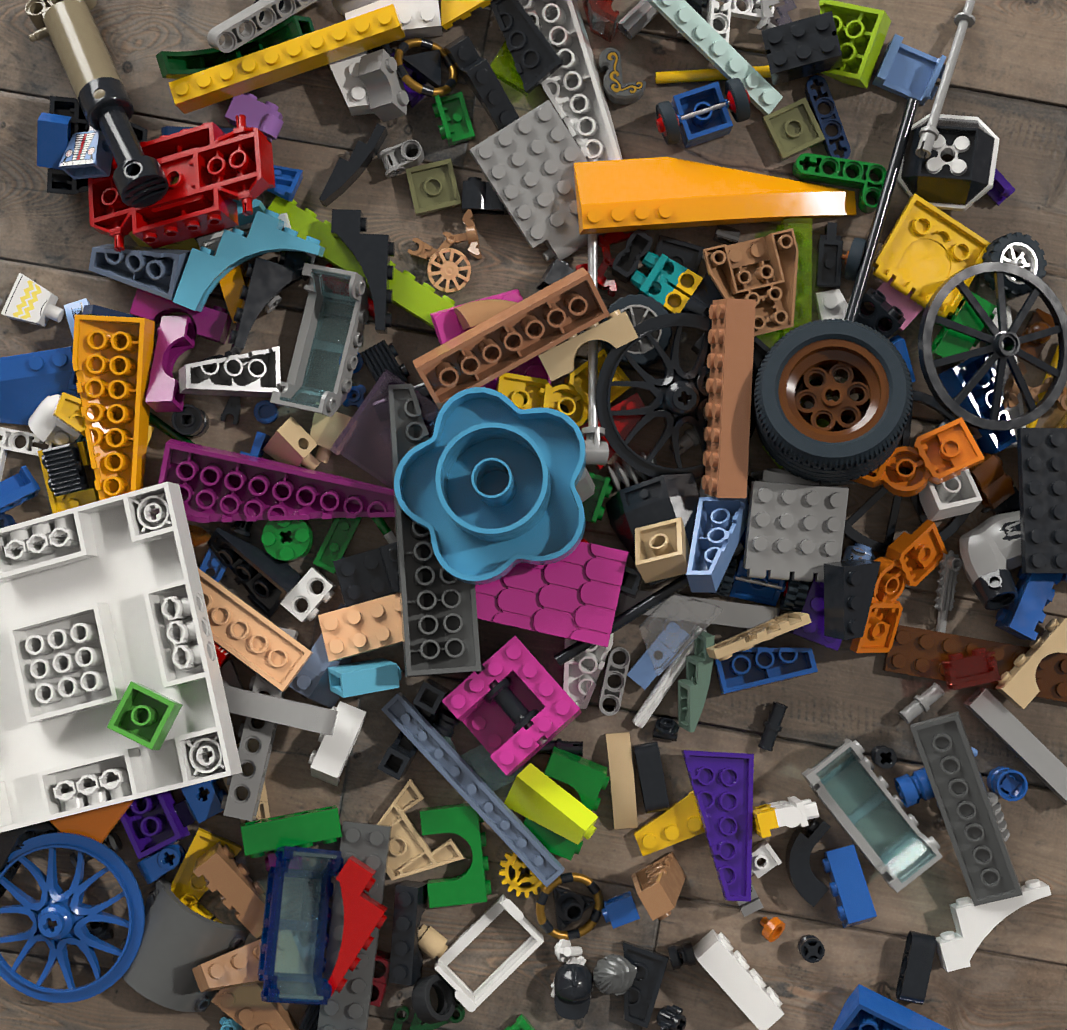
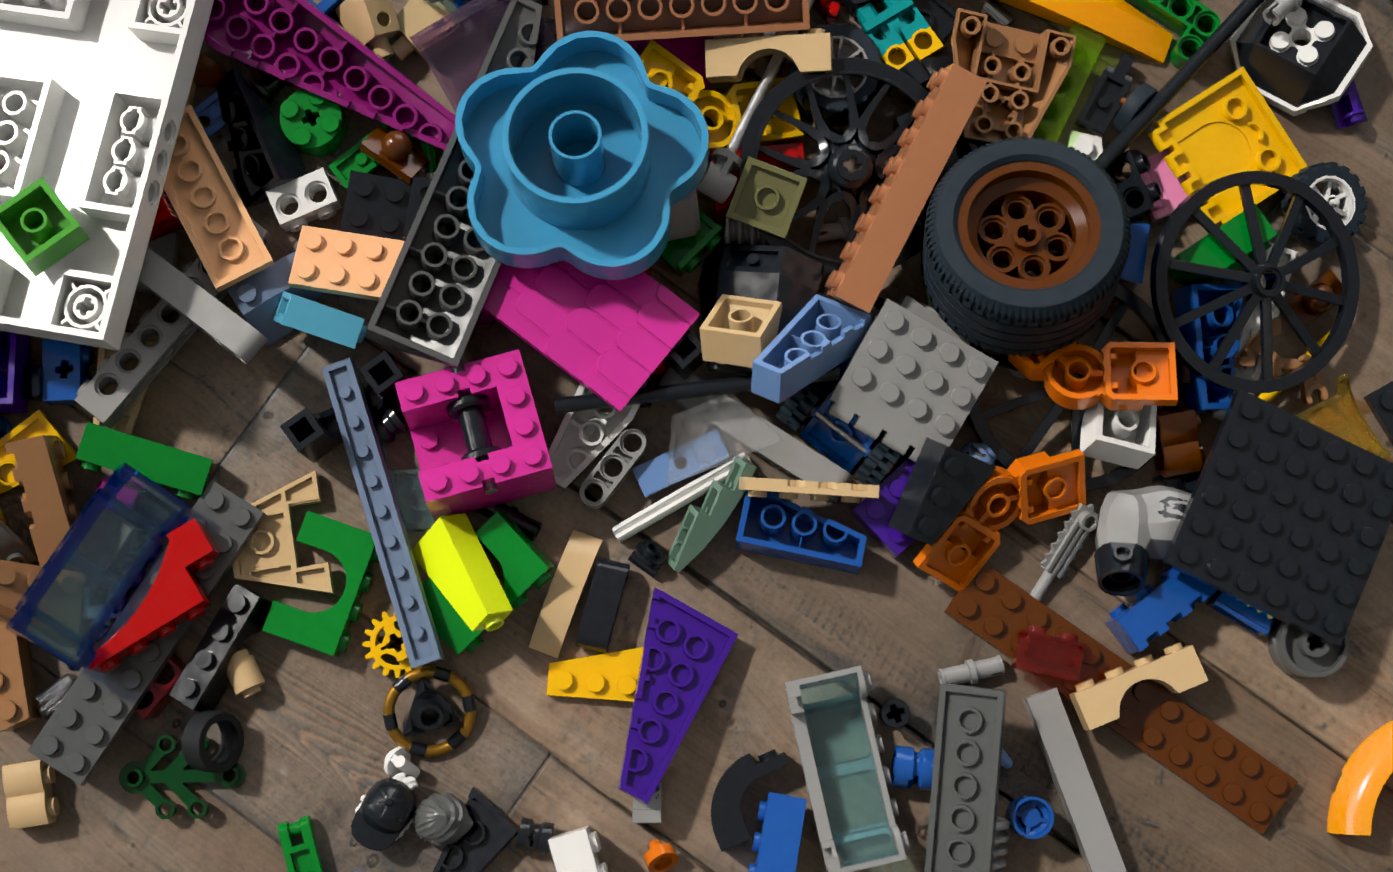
camera: 25 degrees right, 5 degrees down
(335, 749) = (249, 386): white wedge -> none
(357, 534) = (394, 153): none -> reddish brown tile
(463, 993) = (251, 751): white piece -> none
(620, 910) = (488, 745): blue brick -> none
(634, 447) = (766, 197): none -> olive plate
(659, 886) = (548, 730): medium nougat wedge -> none
(763, 850) = (698, 771): white brick -> none
(772, 726) = (777, 613): black pin -> none
(783, 813) = (738, 720): white hips -> none

